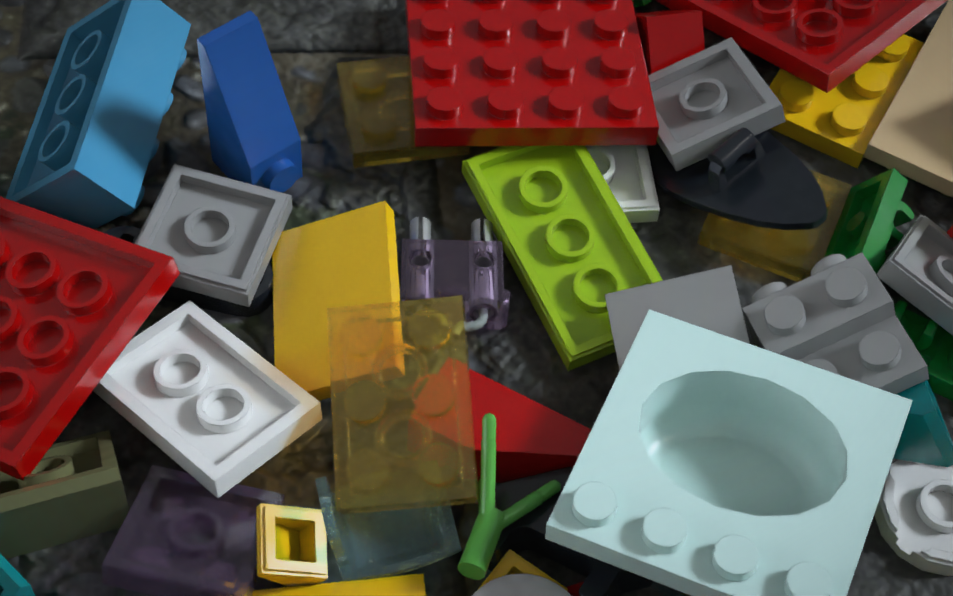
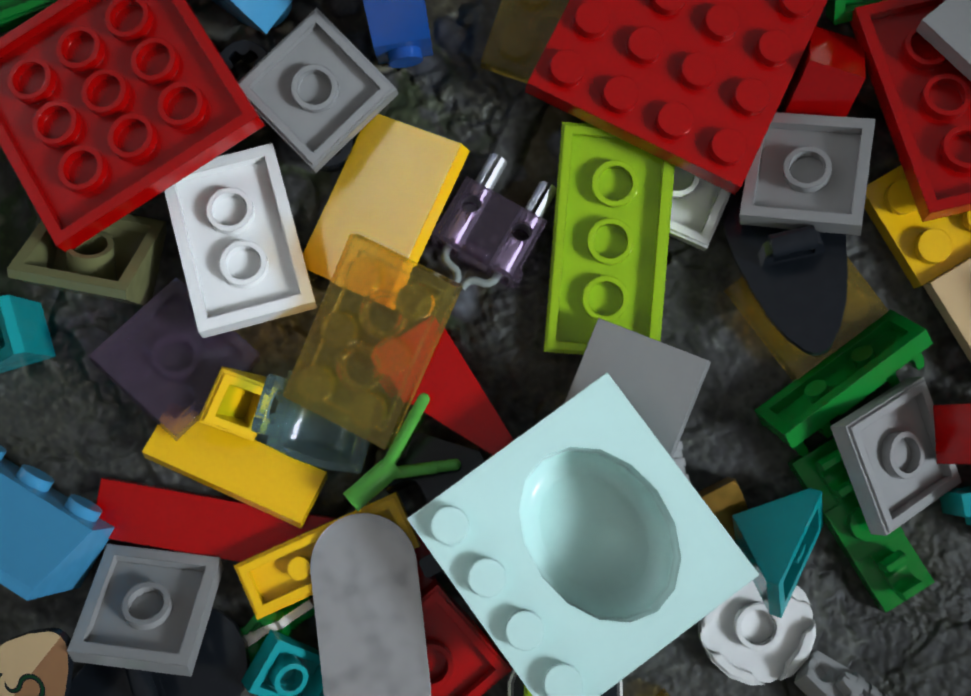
camera: 35 degrees right, 30 degrees up
(839, 324) = (753, 465): light grey plate -> none

